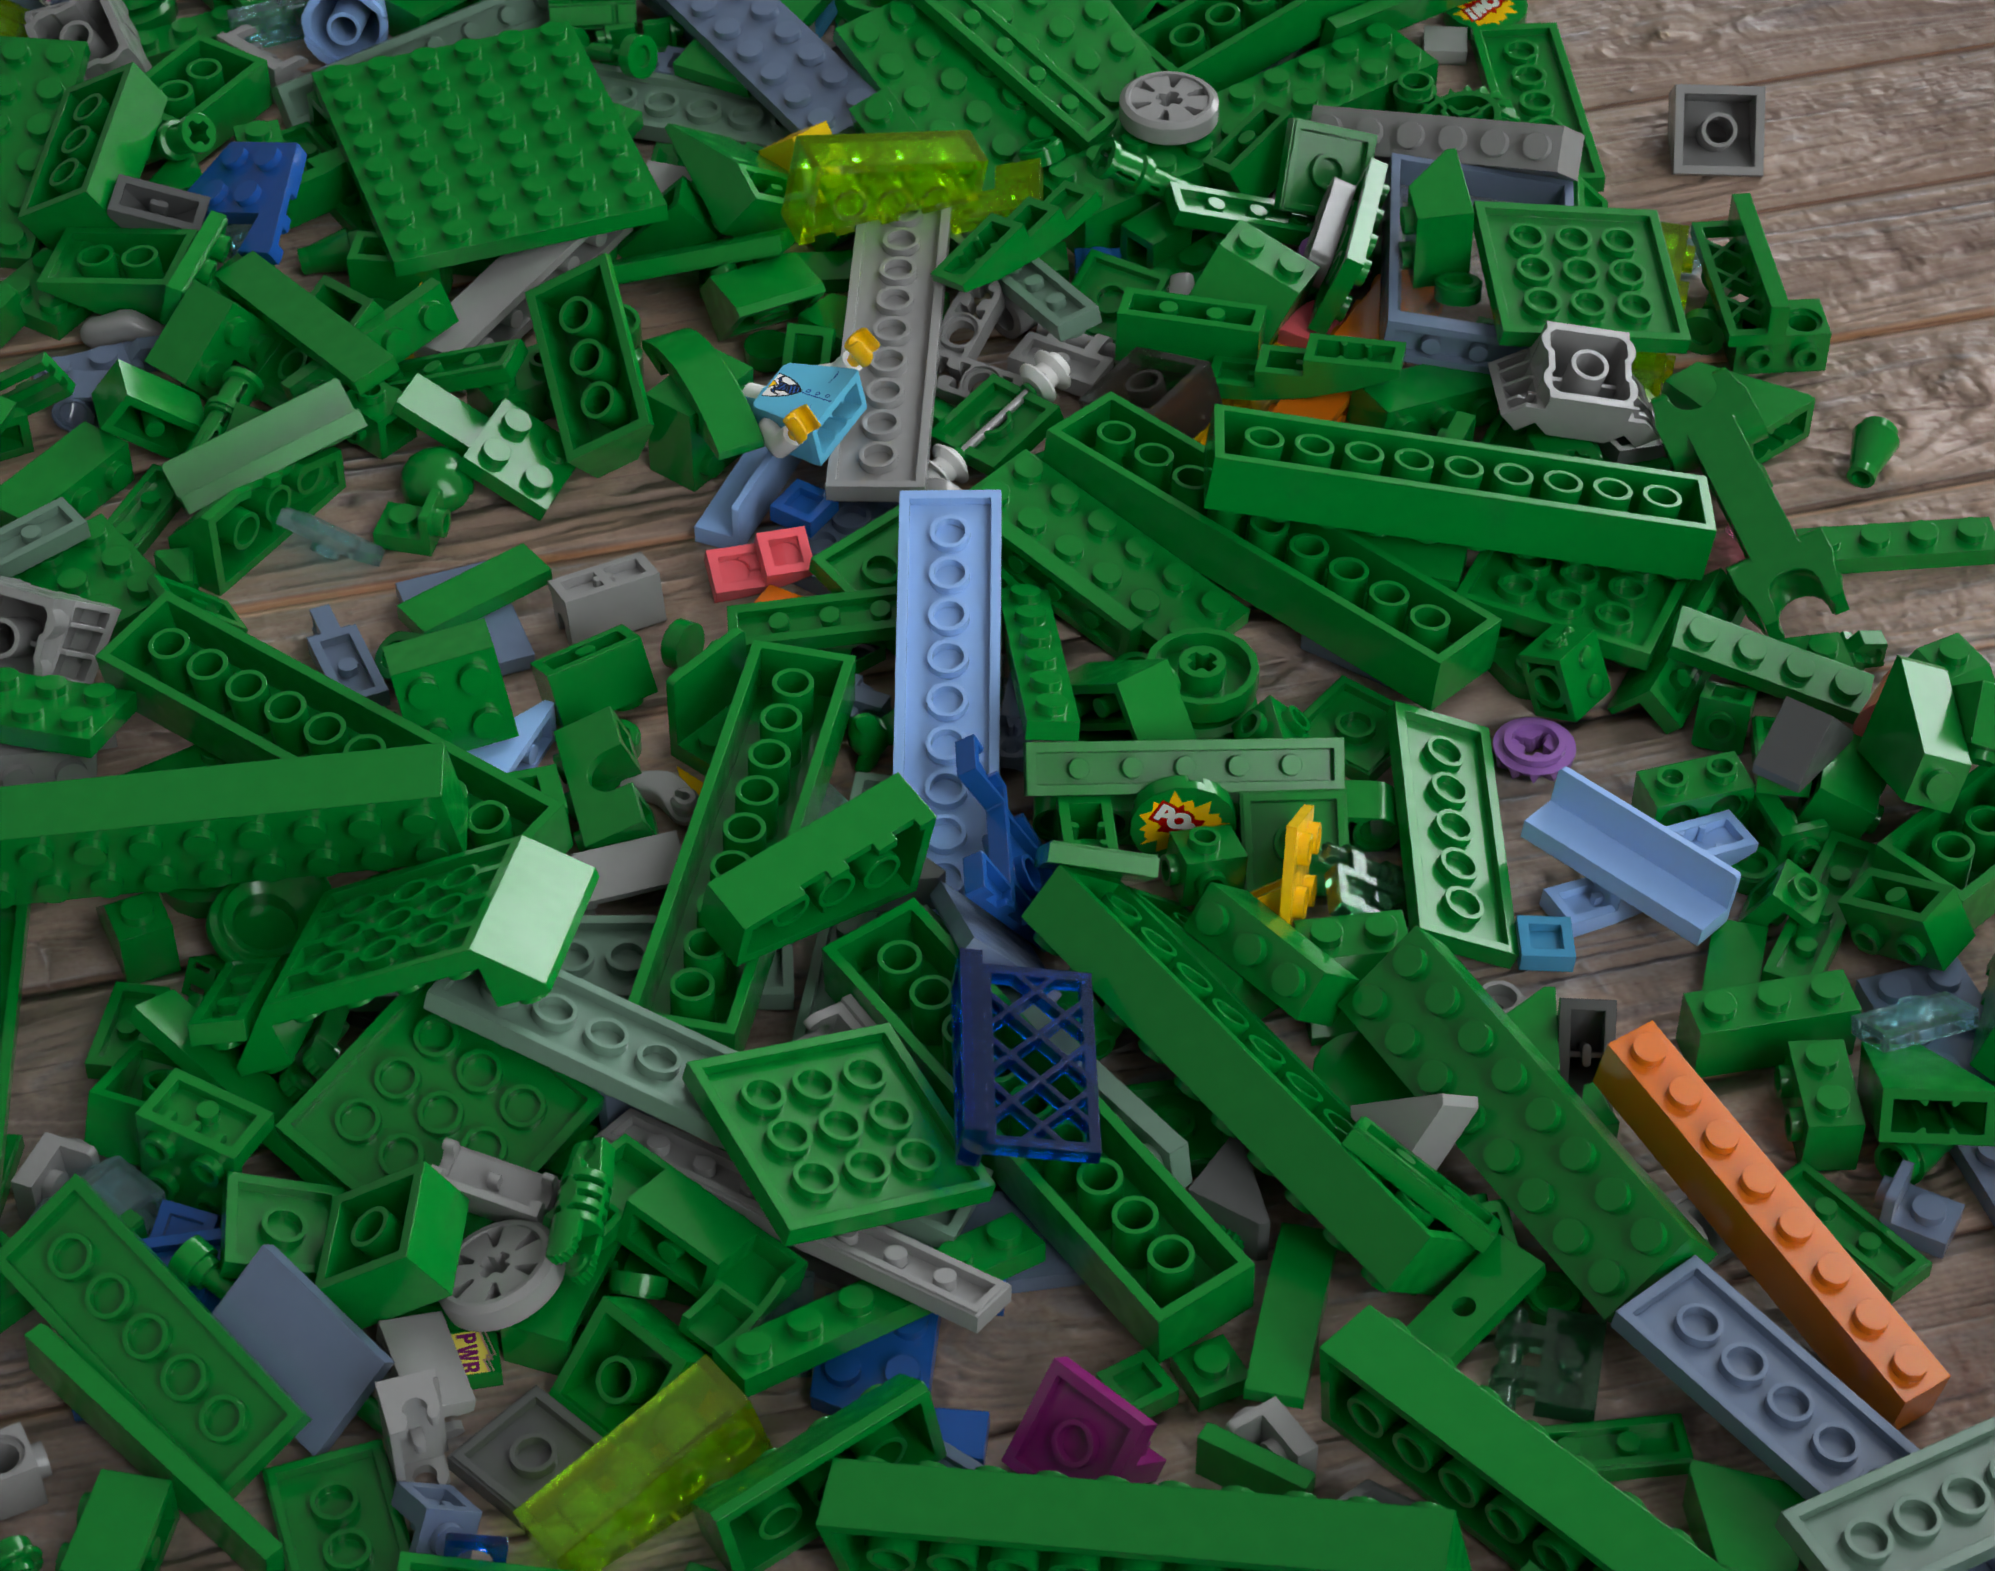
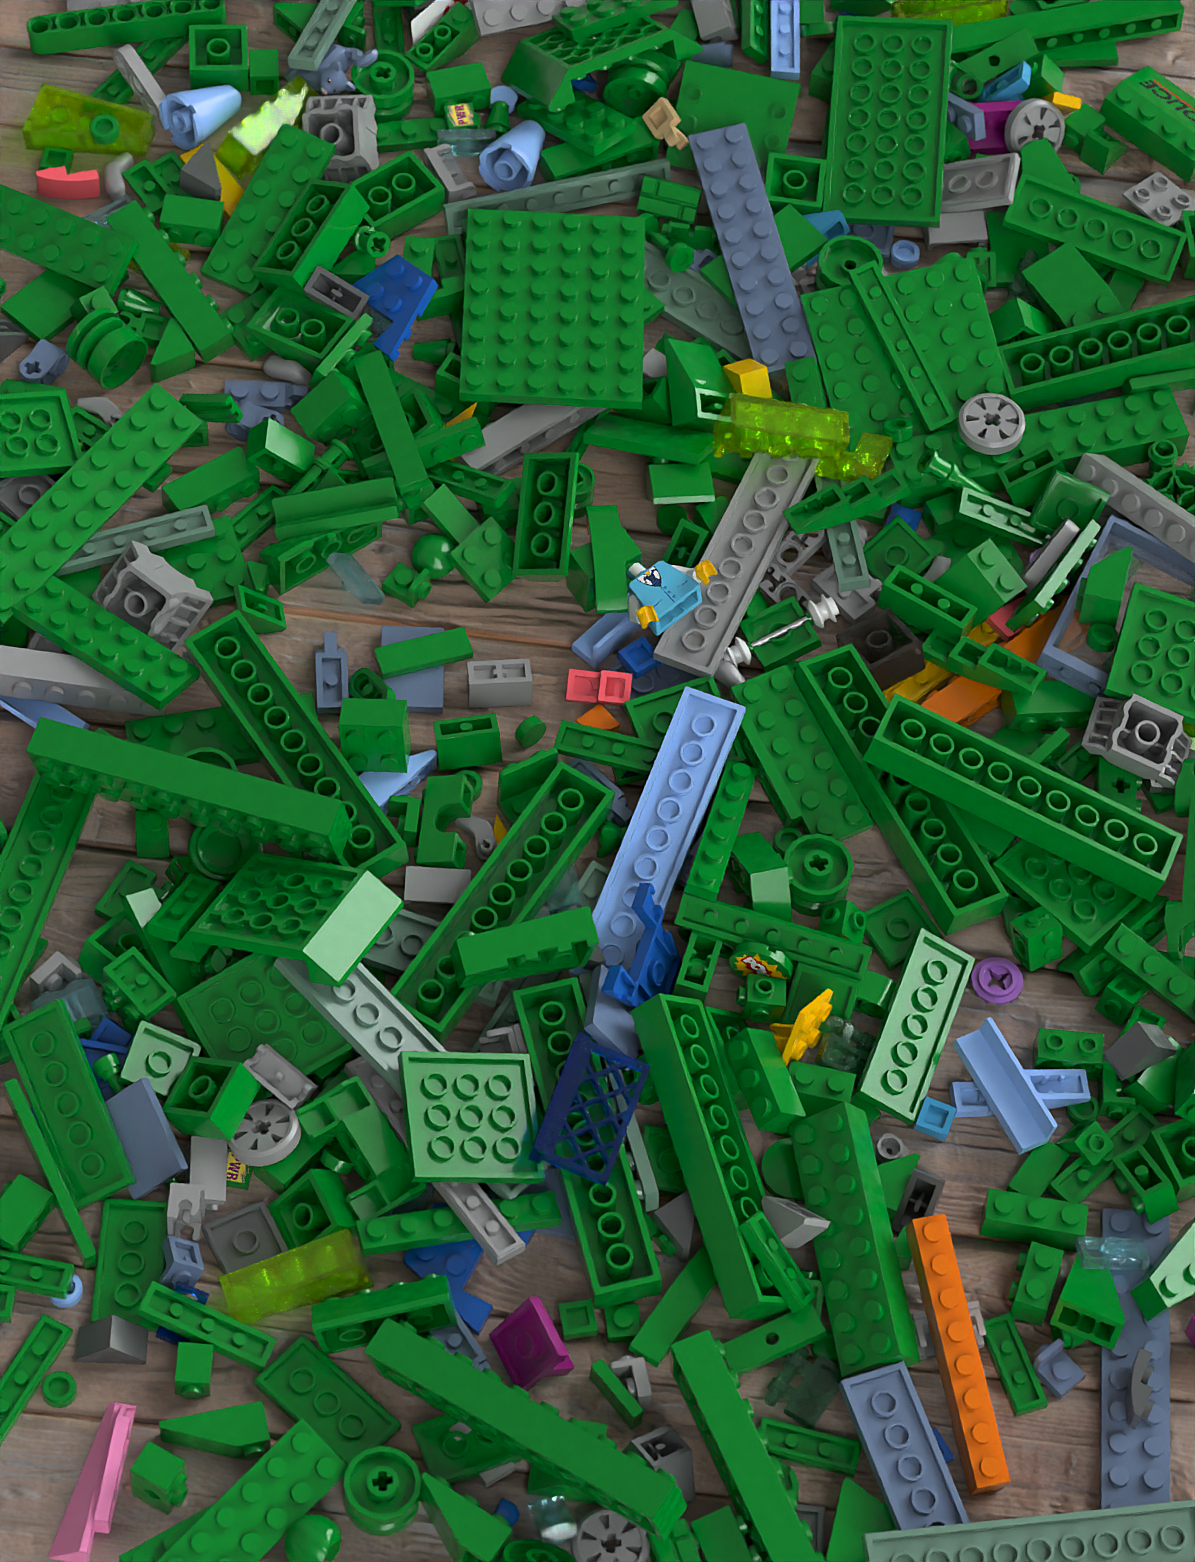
camera: 15 degrees right, 15 degrees up
(582, 1209) = (315, 1116): green hinge -> none
(1100, 860) = (687, 991): green tile -> none

